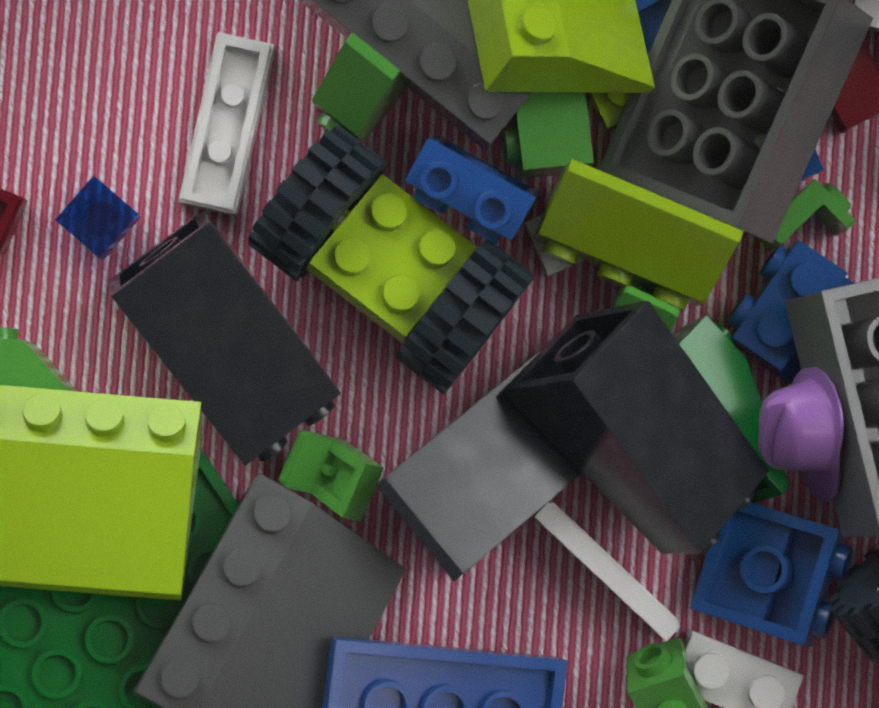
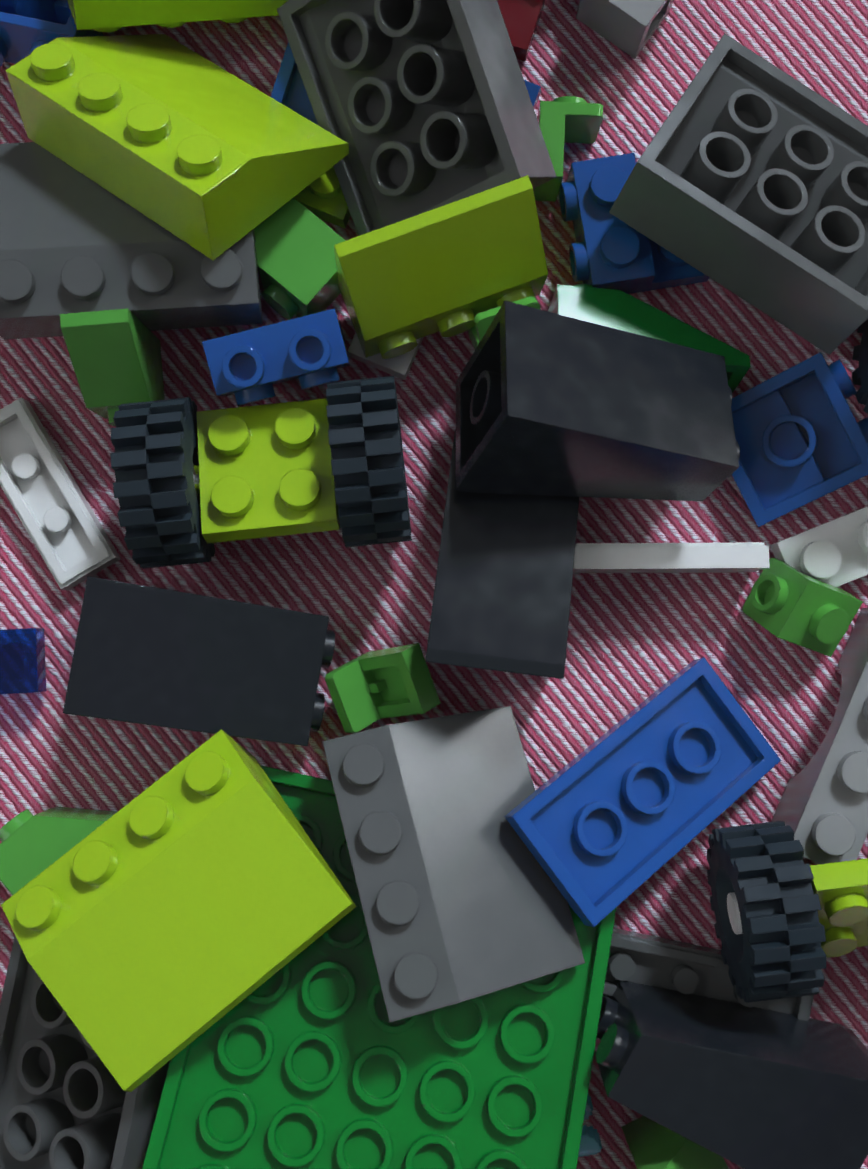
camera: 40 degrees left, 0 degrees up
(804, 431) = (726, 295): medium lavender piece -> none

